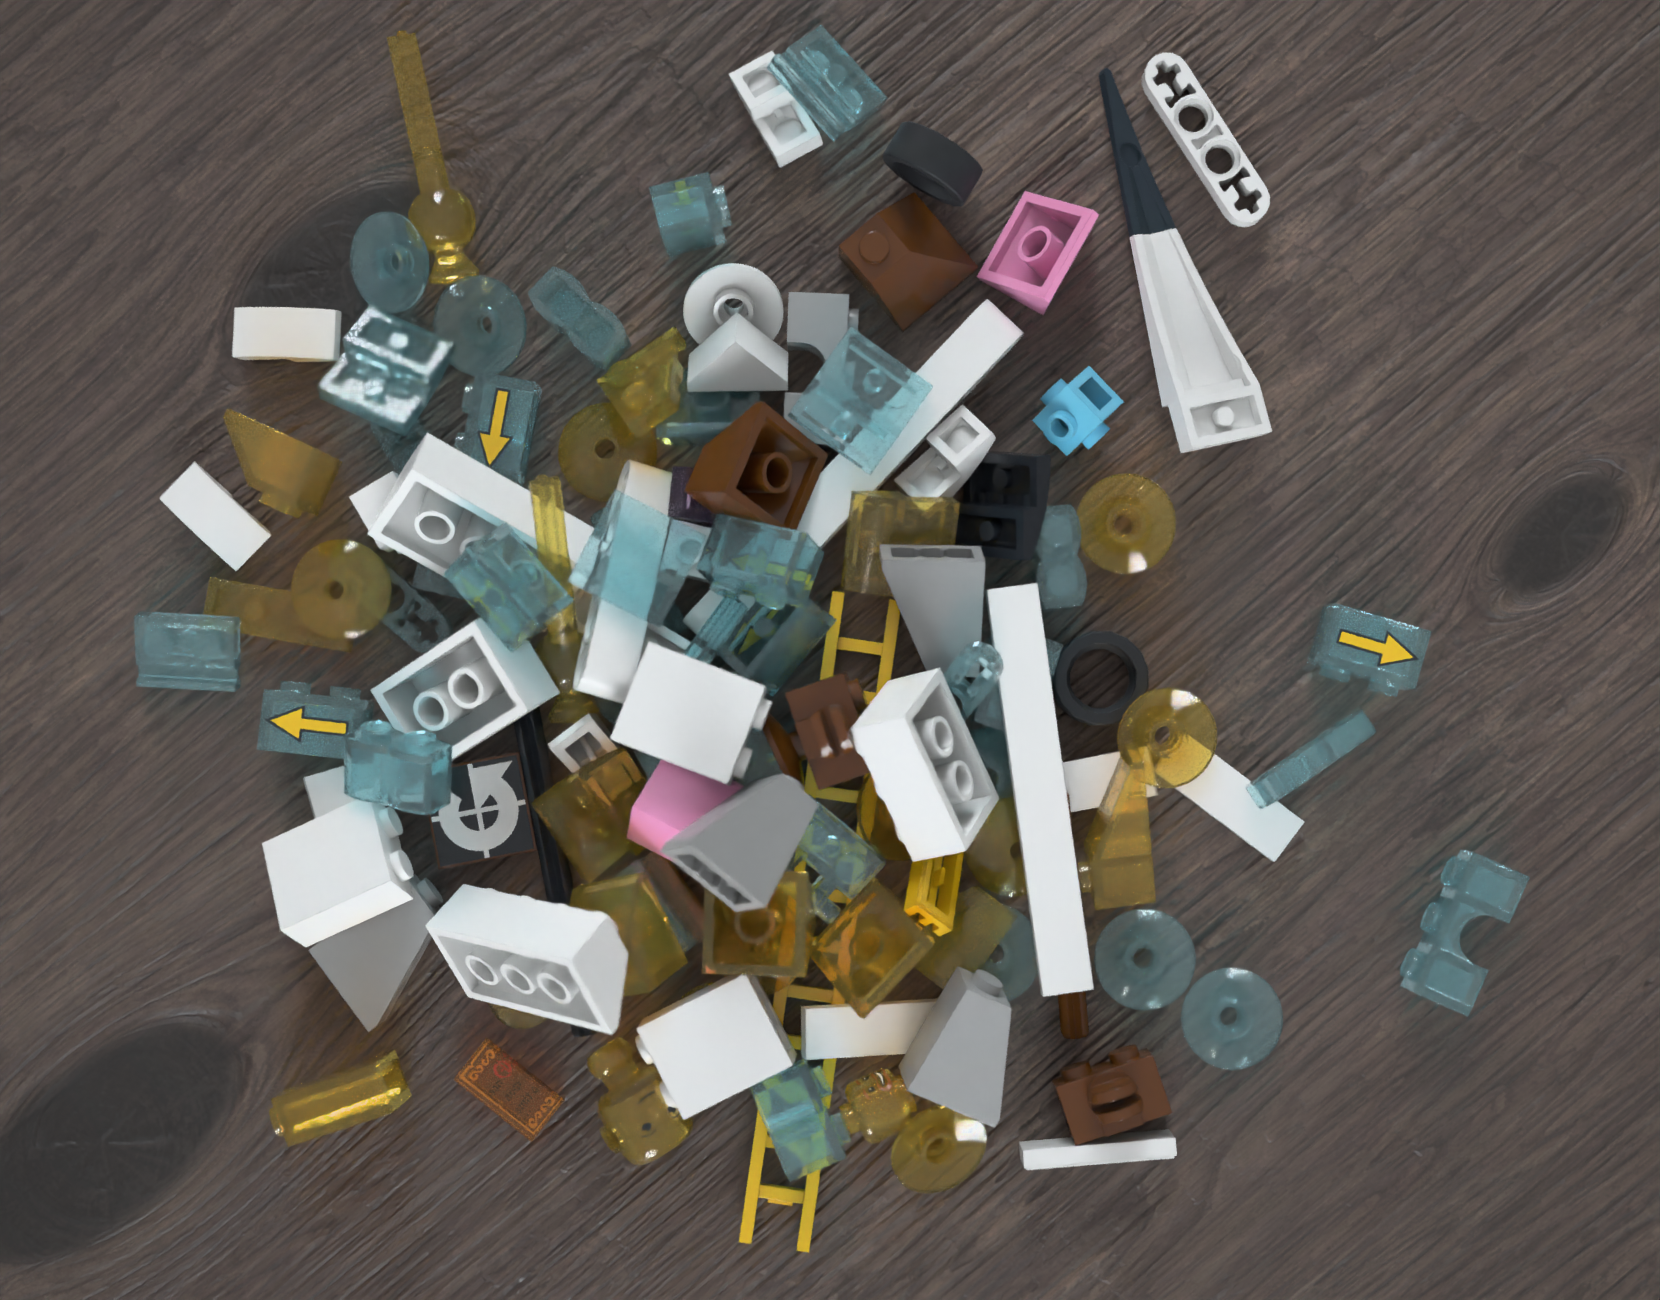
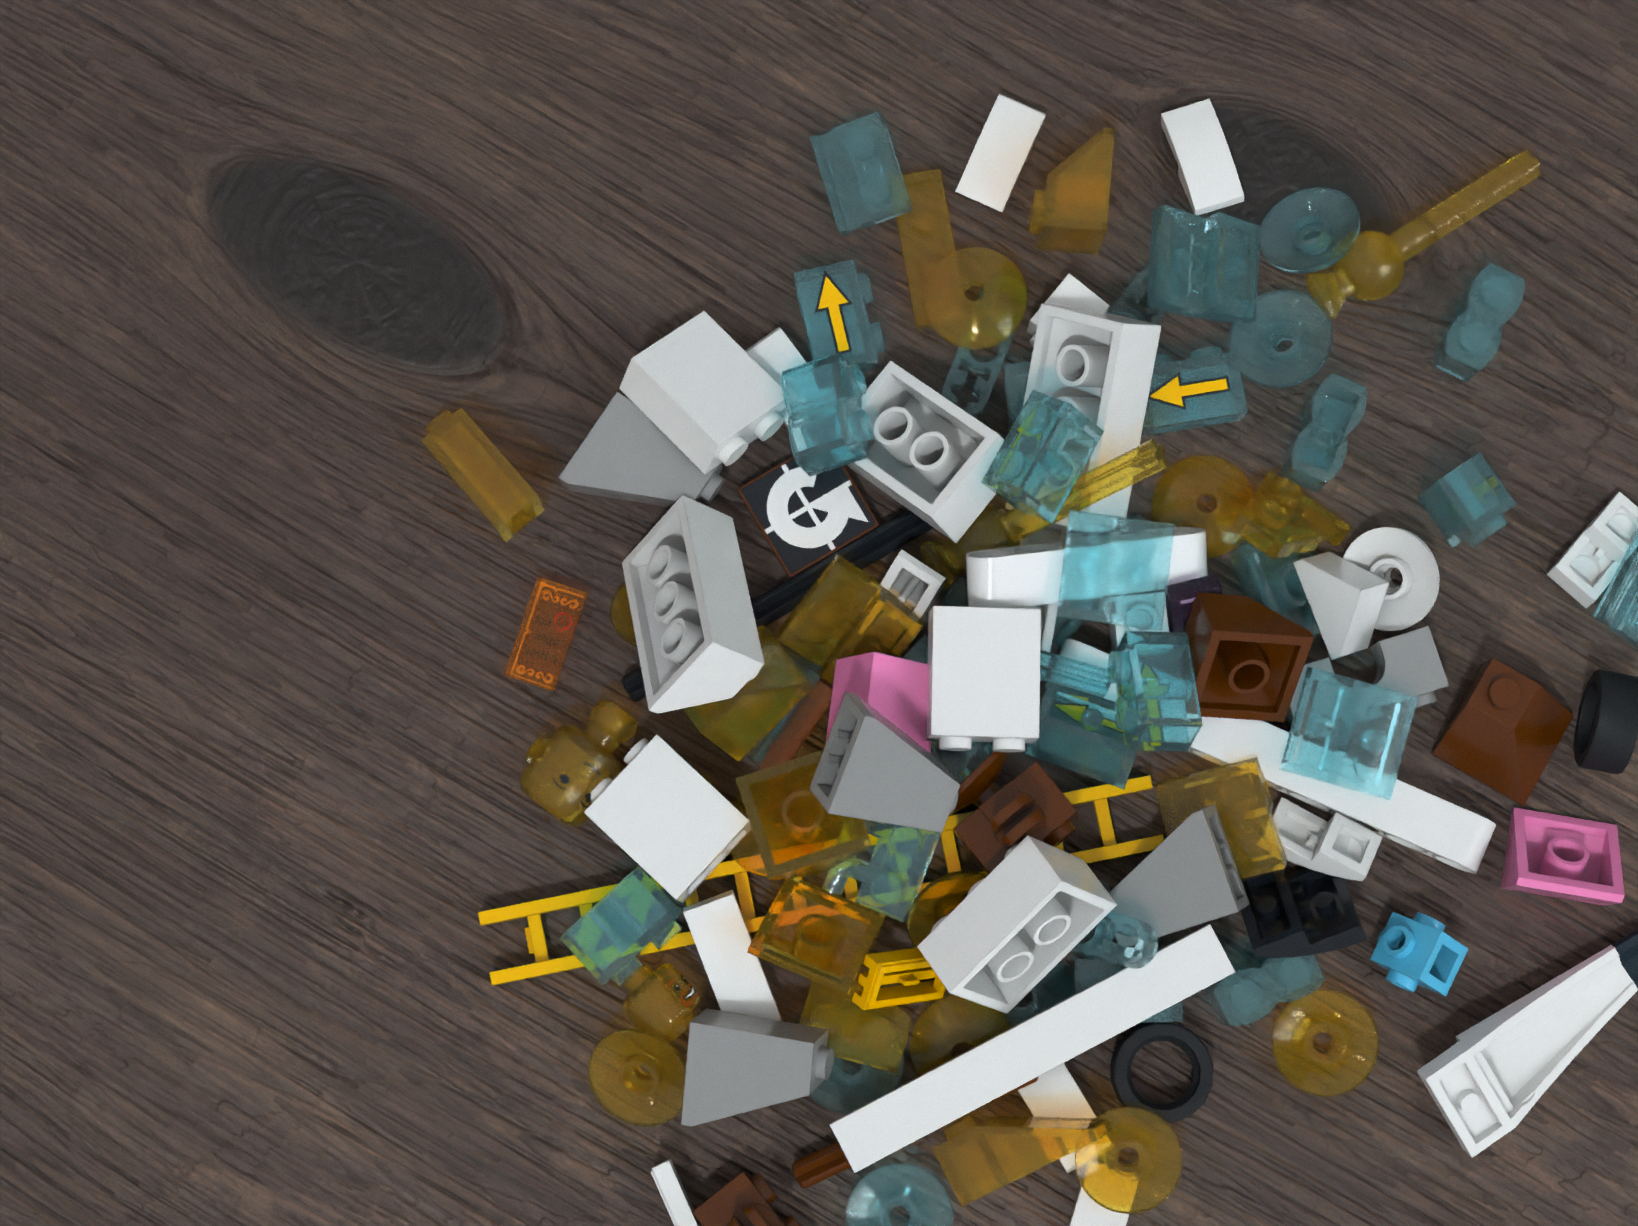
camera: 60 degrees right, 5 degrees down
(523, 136) = (1479, 321): none -> clear light blue brick

